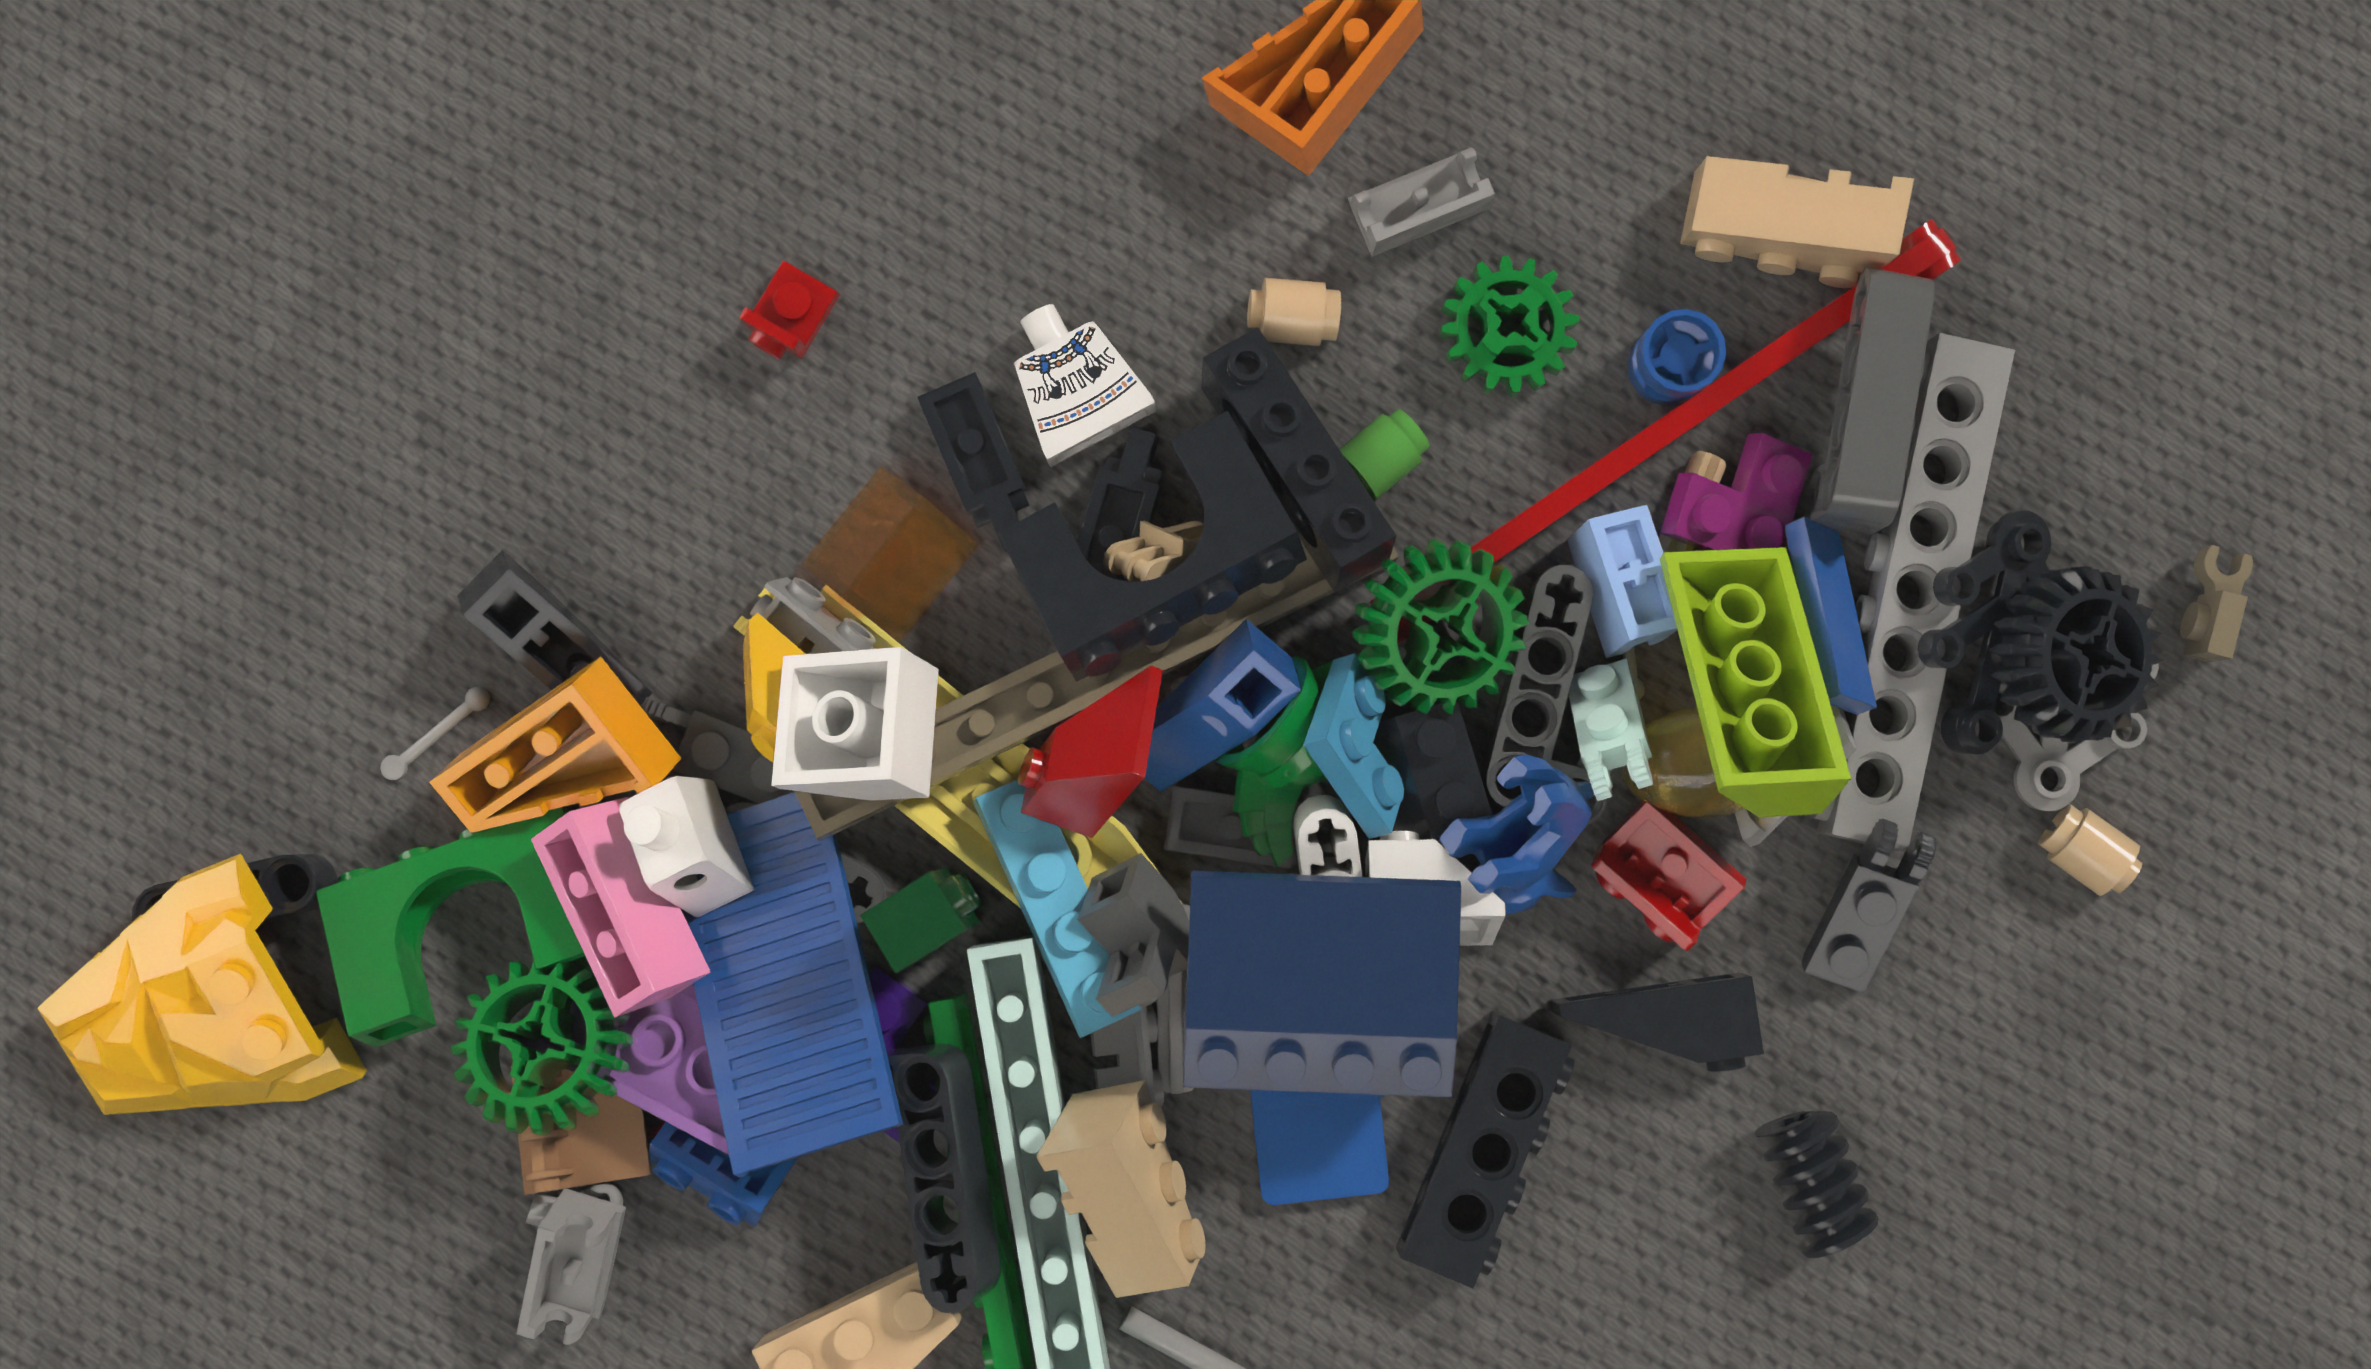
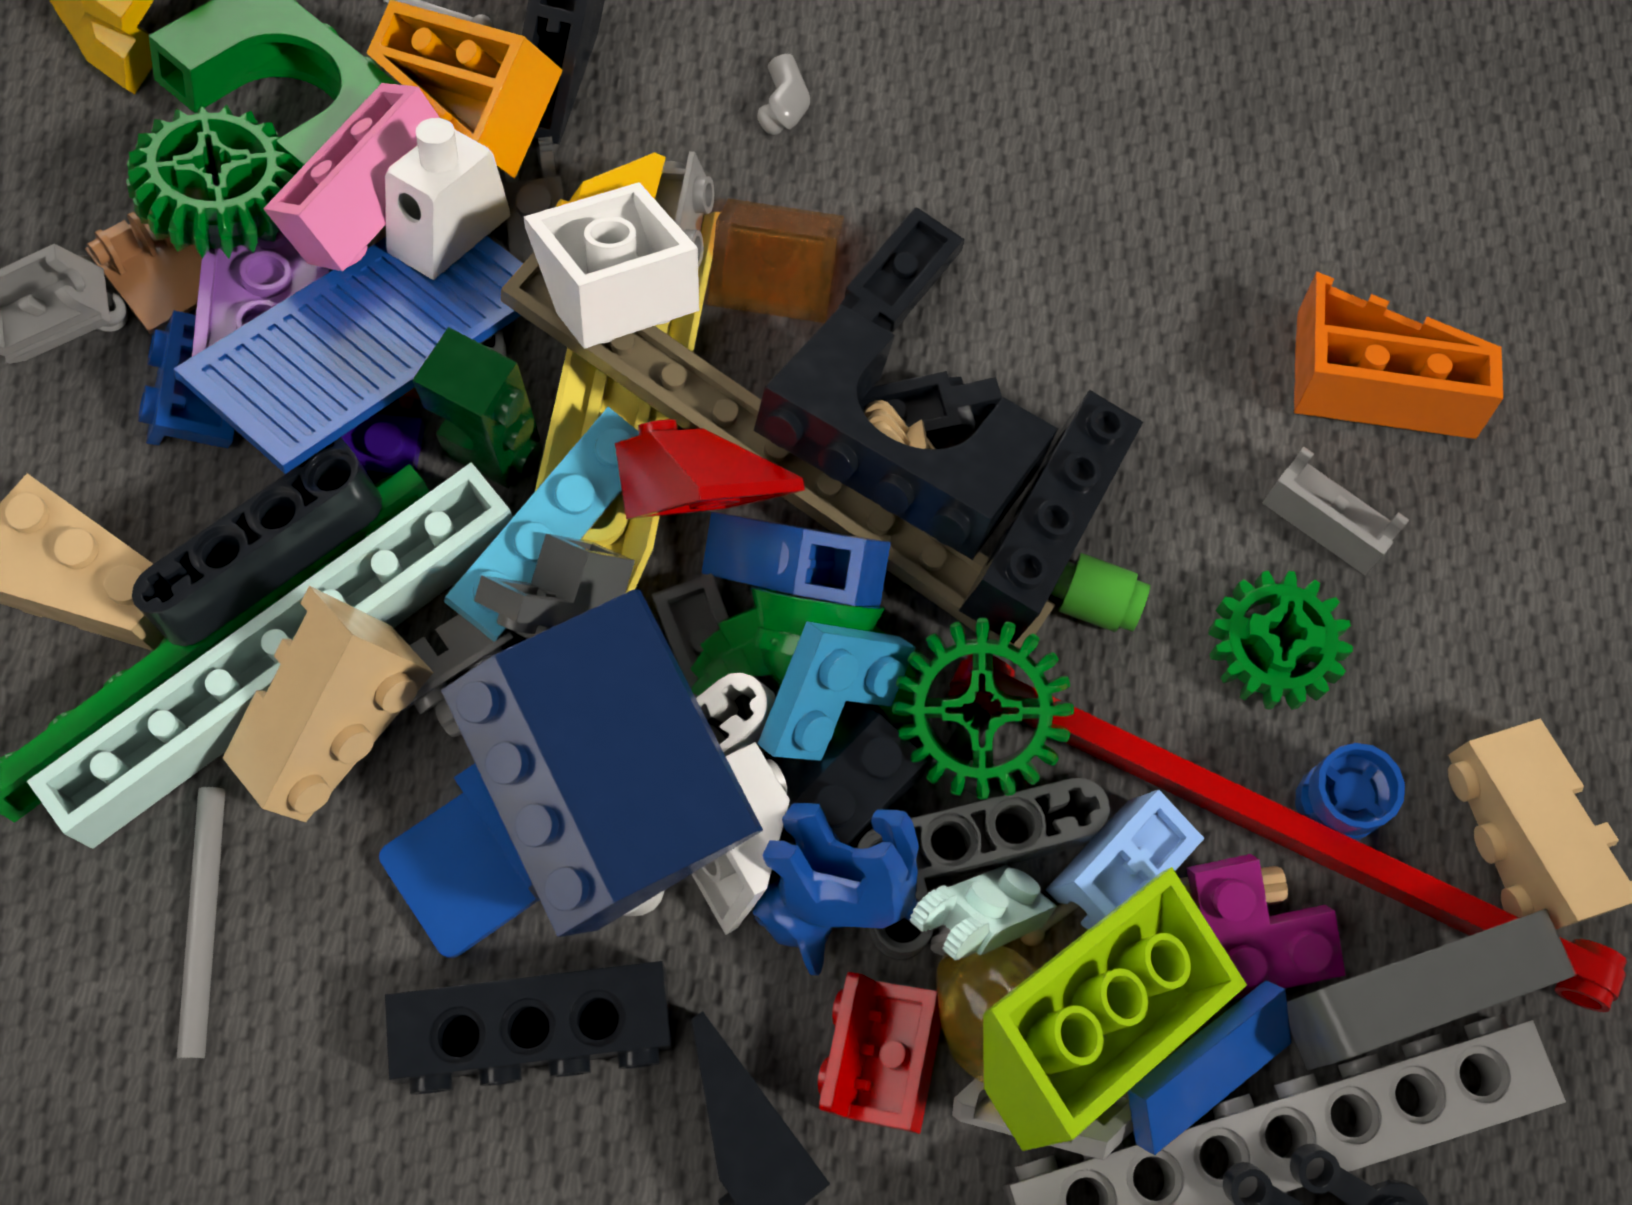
camera: 55 degrees right, 15 degrees down
(731, 448) = (789, 99): none -> light grey arm
(789, 312) = (923, 87): red bracket -> none
(1076, 385) = (999, 320): white torso -> none
(1295, 311) = (1175, 458): tan brick -> none

